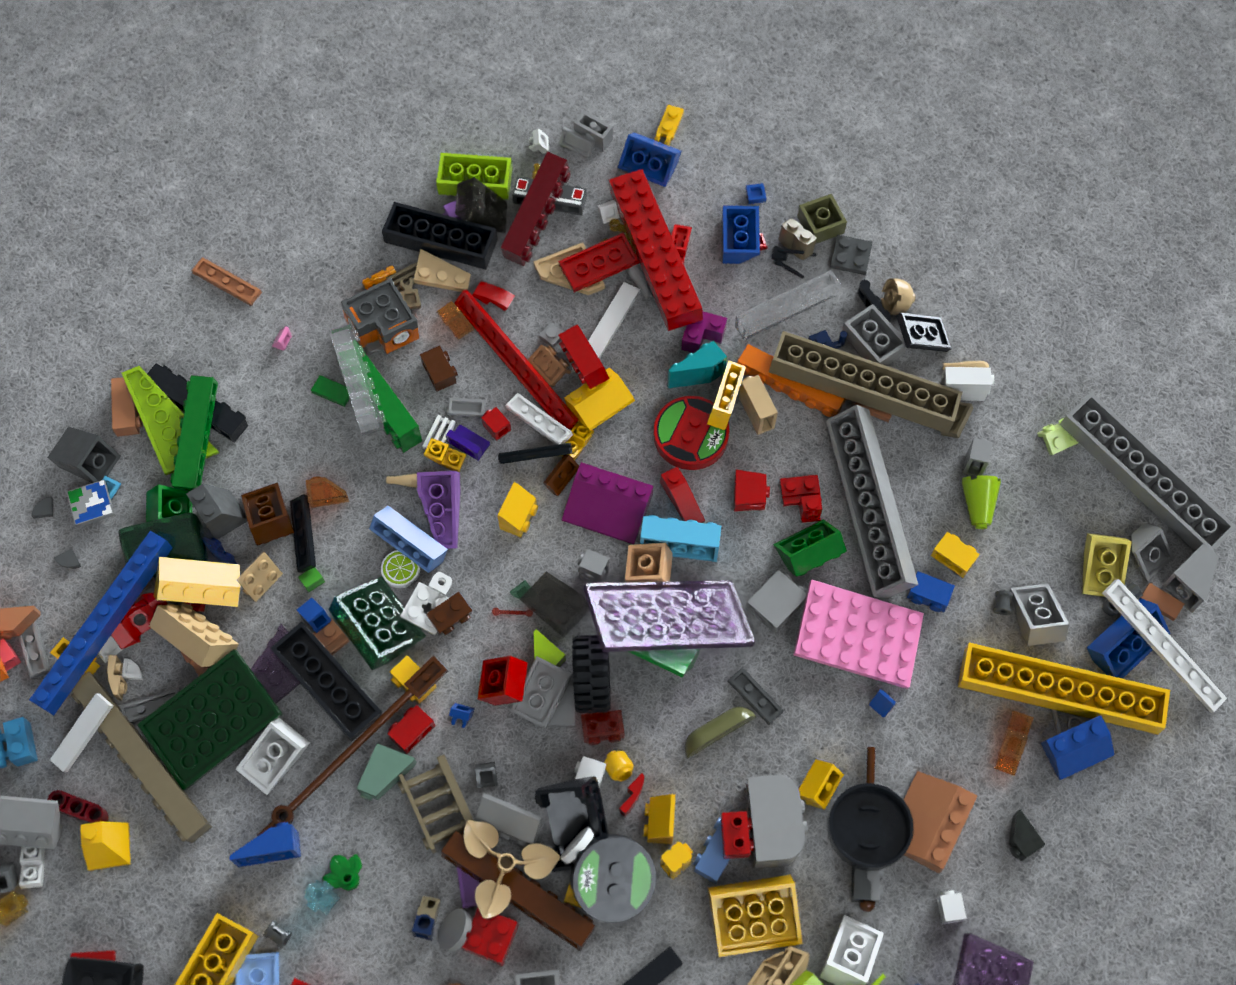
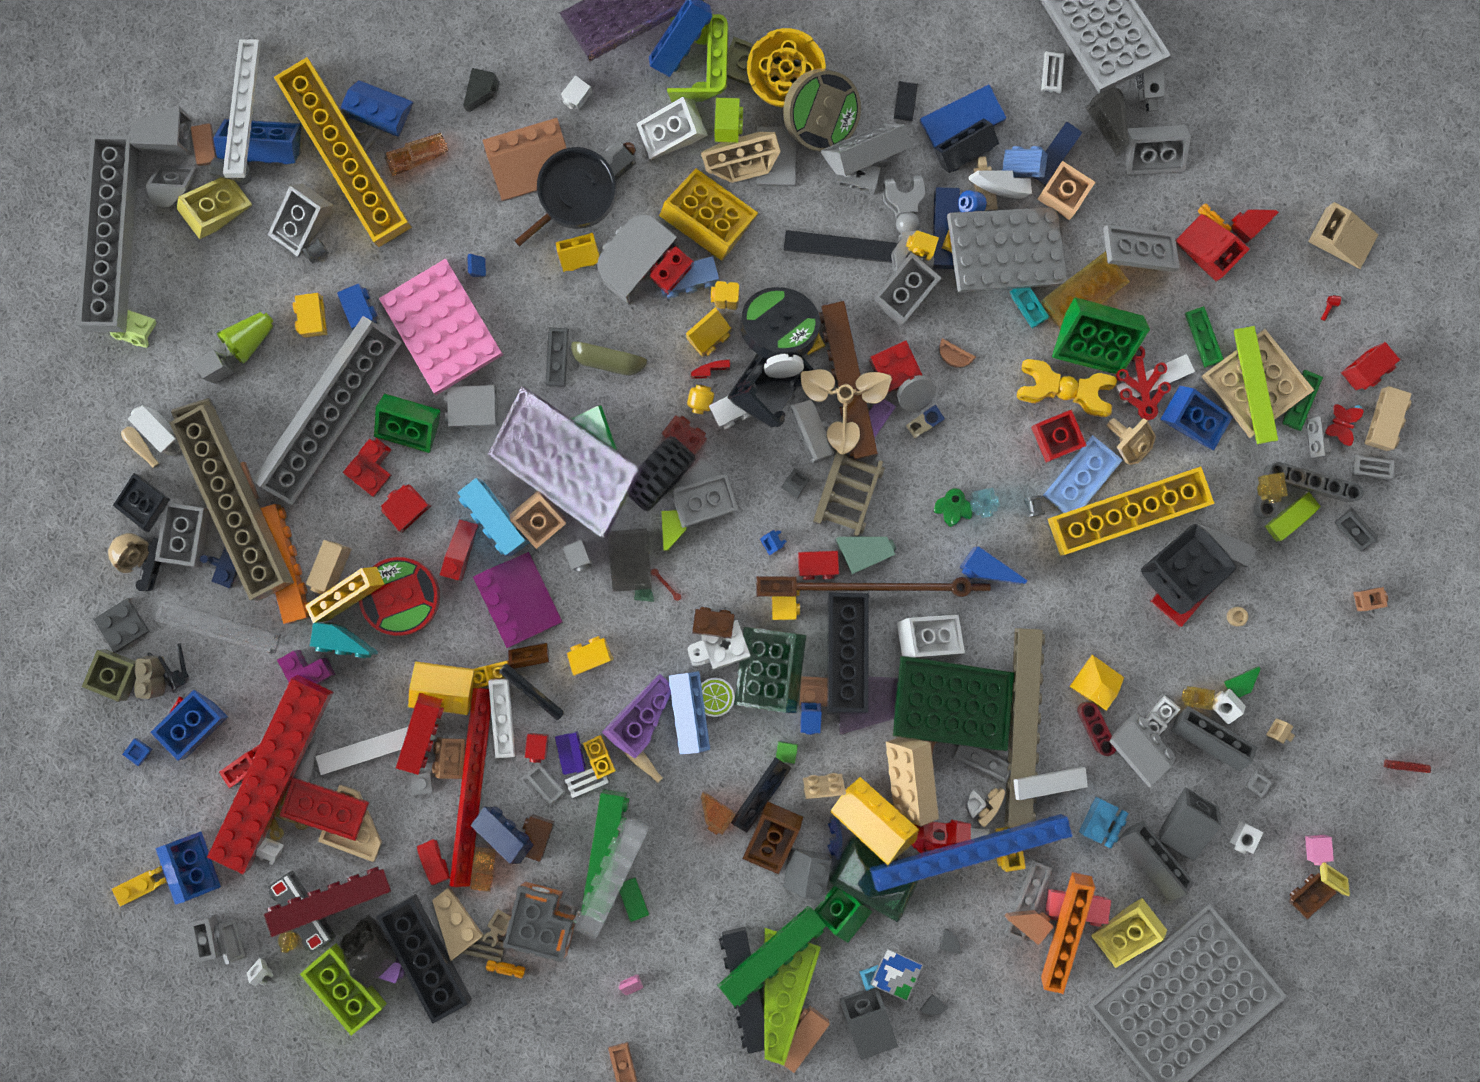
camera: 135 degrees left, 20 degrees up
(462, 347) = (502, 835): none -> brick
(502, 680) = (724, 533): red brick -> none

